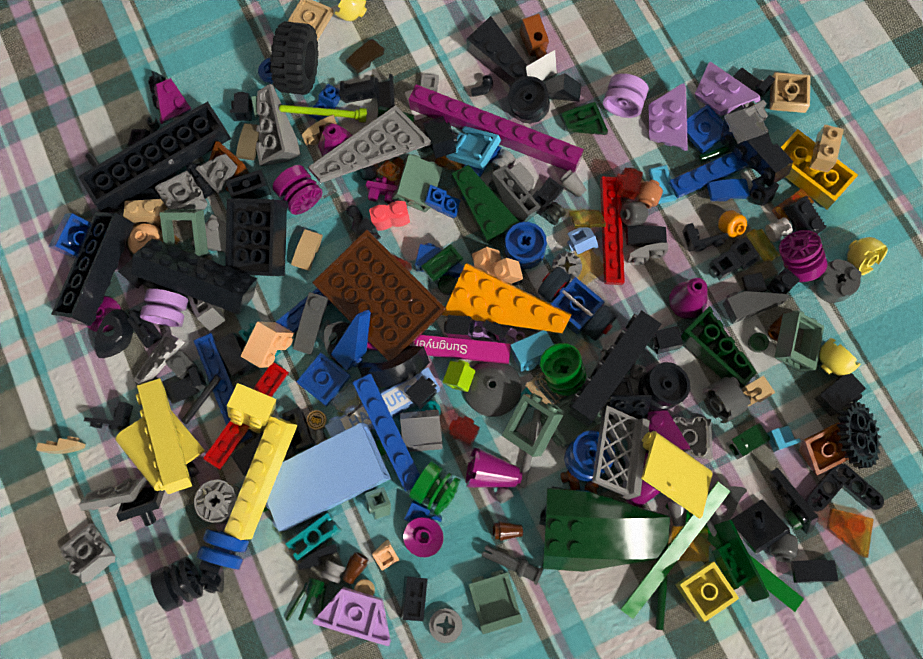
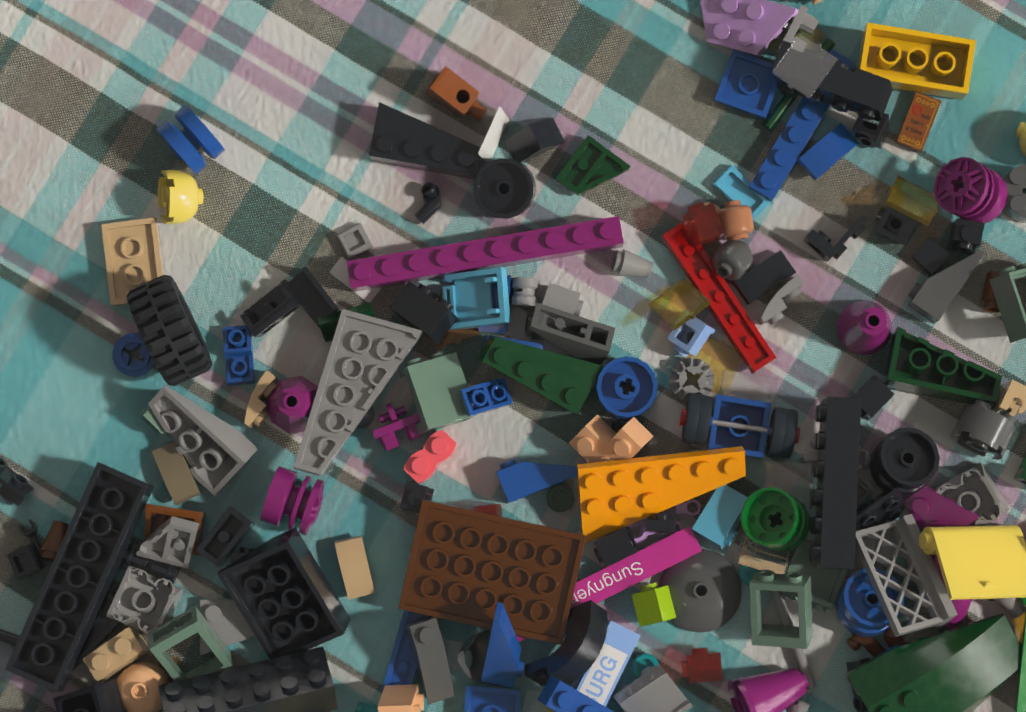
camera: 40 degrees left, 10 degrees up
(170, 101) = (34, 487): magenta wing -> none
(241, 107) = (132, 431): black brick -> none
(356, 215) = (385, 482): black arm -> none
(359, 114) = (295, 345): lime piece -> none
(363, 56) = (244, 256): dark brown slope -> none
(392, 170) = (395, 396): clear orange slope -> none
(421, 392) = (627, 657): black brick -> none
(442, 262) = (541, 479): dark green tile -> none
(548, 193) = (607, 300): black slope -> none
(553, 213) = (632, 321): pearl dark grey wheel -> none
(625, 95) = (625, 107): lavender wheel -> none
(669, 118) = (697, 100): lavender wing -> none
(728, 261) = (886, 248): black brick -> none
(732, 223) = (860, 196): light orange head -> none
(758, 342) = (979, 328): dark green tile -> none
(777, 230) = (919, 167): white wheel -> none
(804, 215) = (942, 134): black brick -> none
(826, 148) = (919, 34): tan brick -> none

